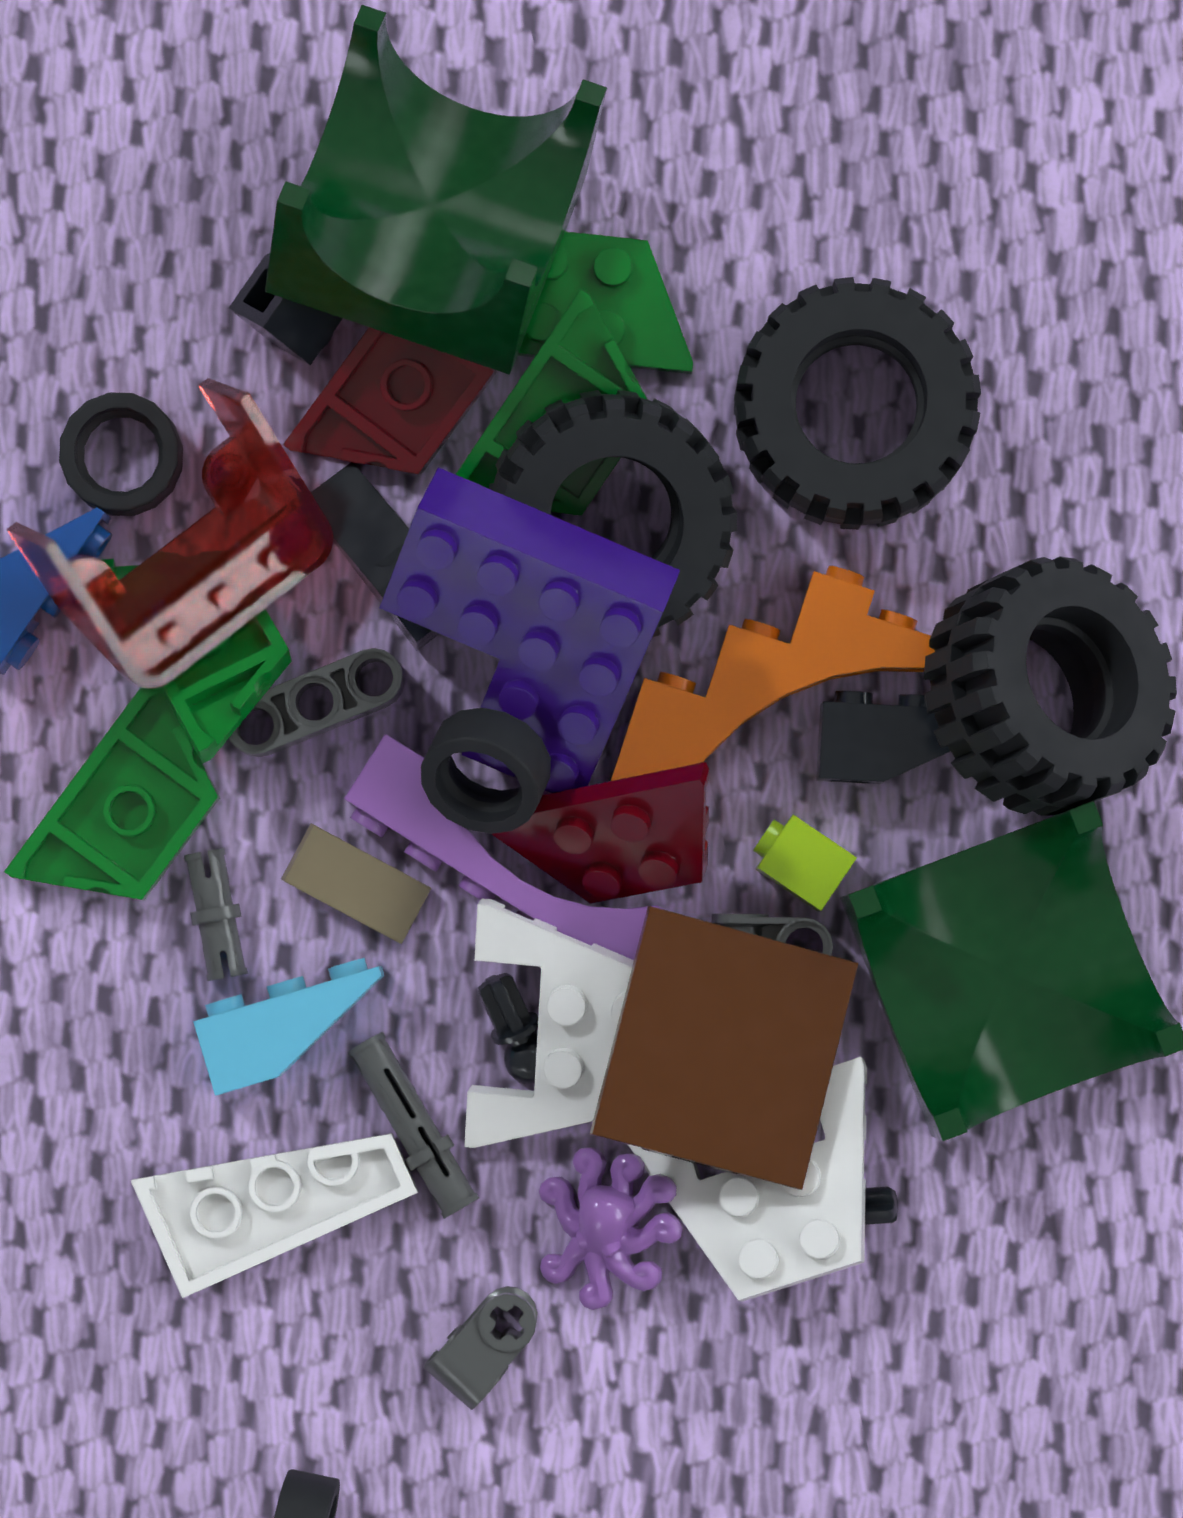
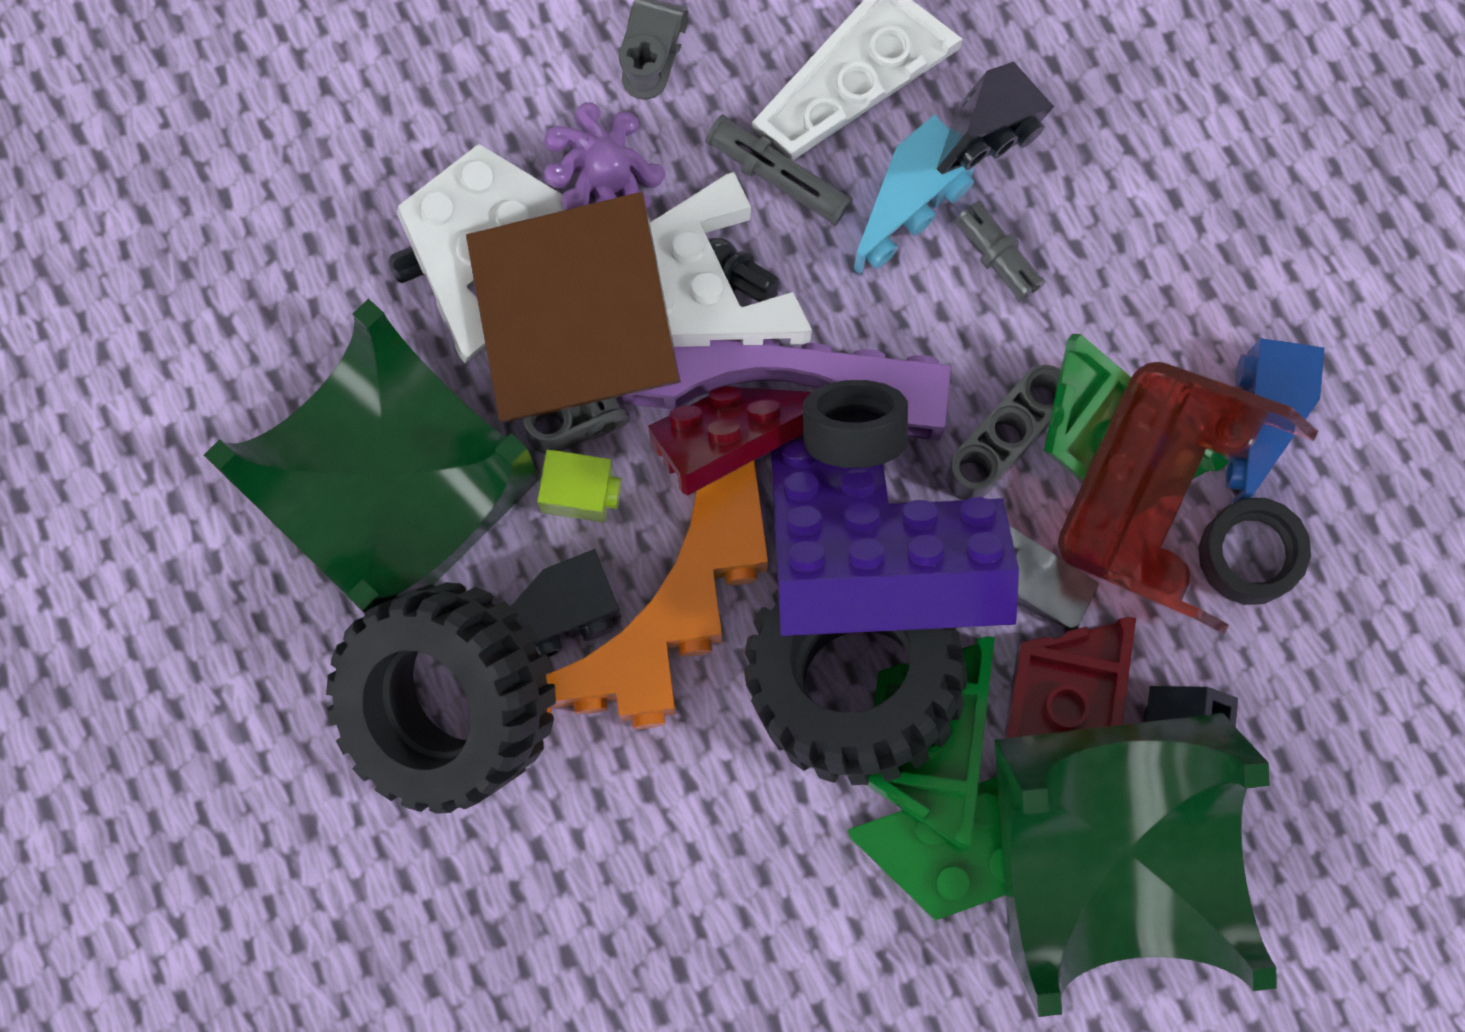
camera: 150 degrees right, 10 degrees down
(123, 808) = (1108, 286): green wing -> none
(158, 1063) = (993, 117): none -> black slope
(356, 883) = (908, 318): dark tan slope -> none
(872, 318) = (625, 846): black tyre -> none

